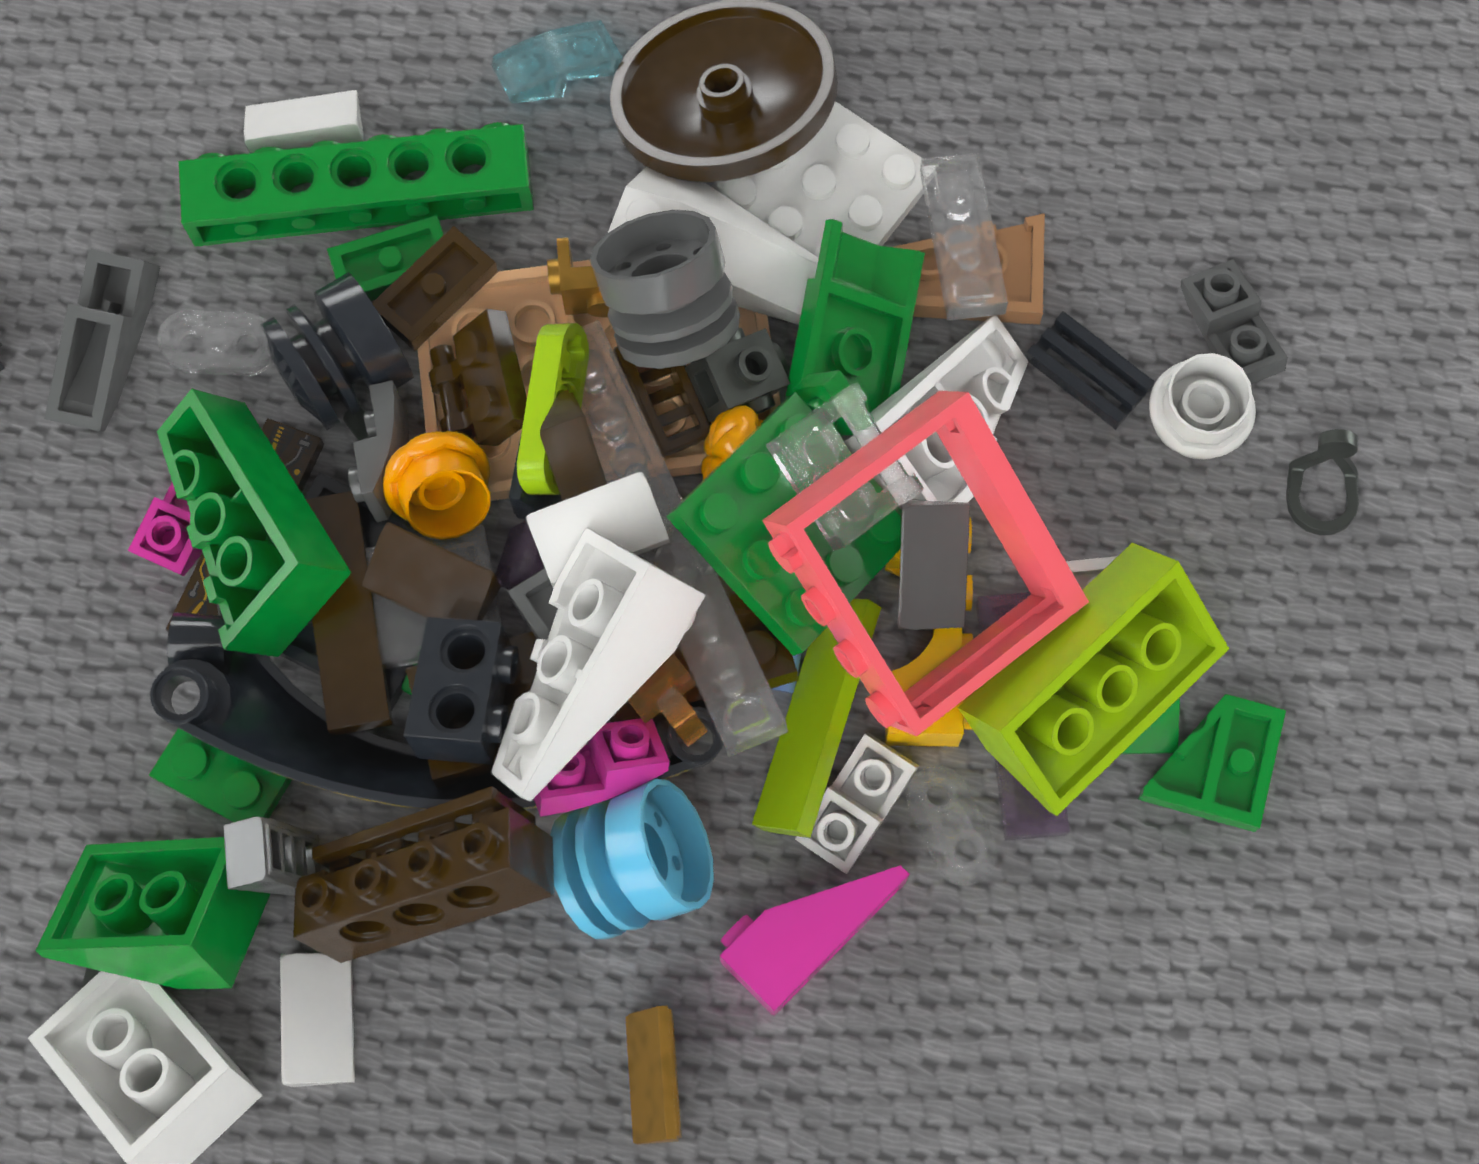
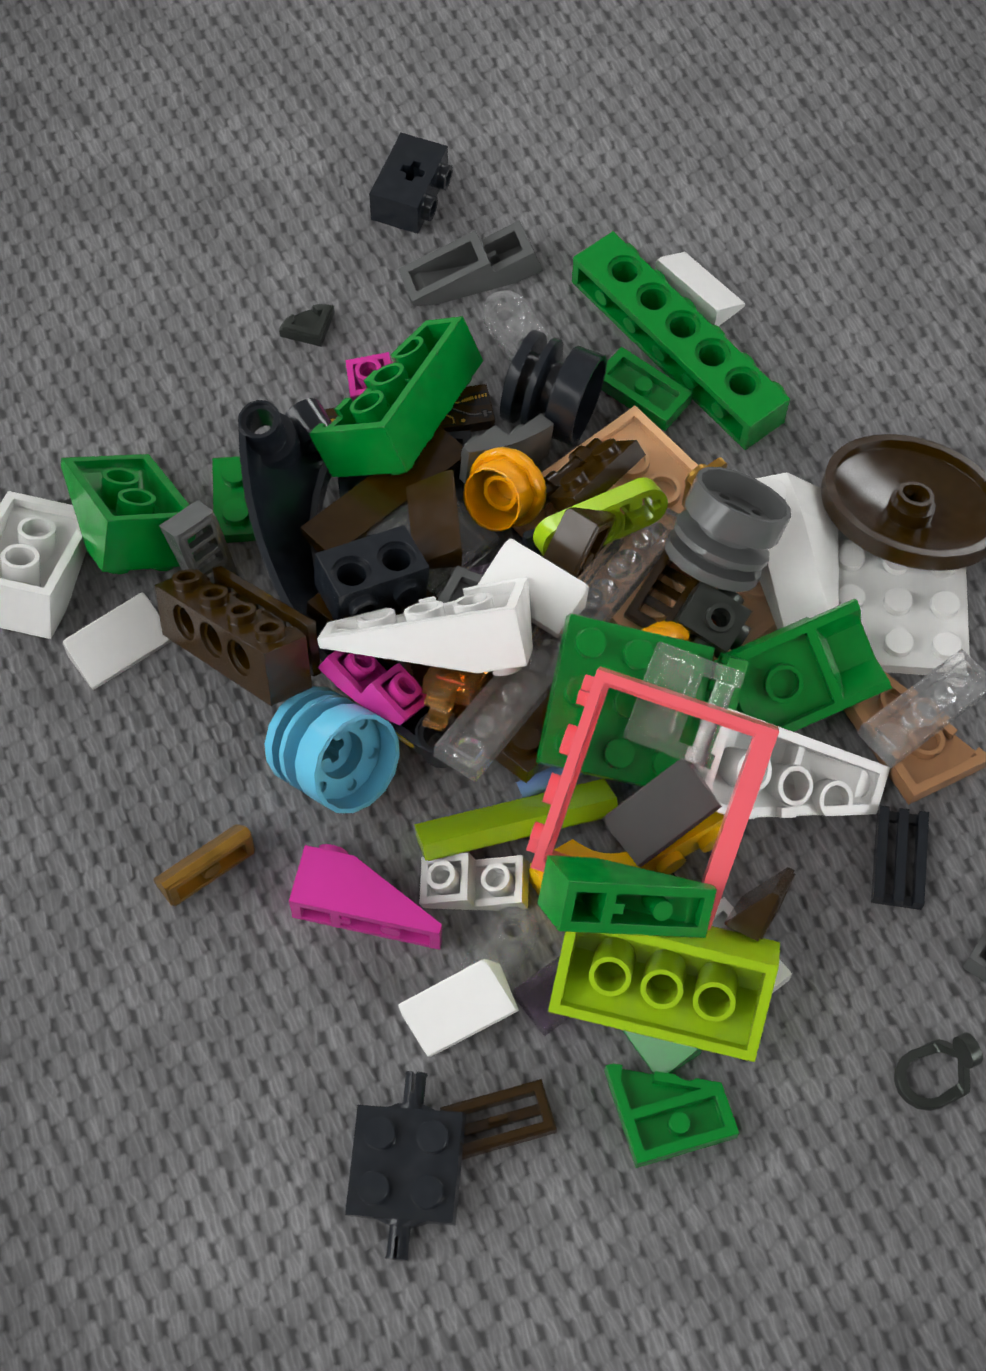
camera: 55 degrees right, 10 degrees down
(42, 562) = (309, 325): none -> pearl dark grey tile
(434, 288) = (637, 415): dark brown plate -> none
(545, 62) = (847, 390): clear light blue slope -> none
(996, 902) = (459, 1006): none -> white slope
(1016, 670) = (622, 899): none -> green slope
(1080, 531) = (760, 906): none -> dark brown slope
(1114, 988) = (511, 1137): none -> dark brown tile
(1125, 1059) = (406, 1165): none -> black plate
(1203, 406) = (928, 946): white piece -> none

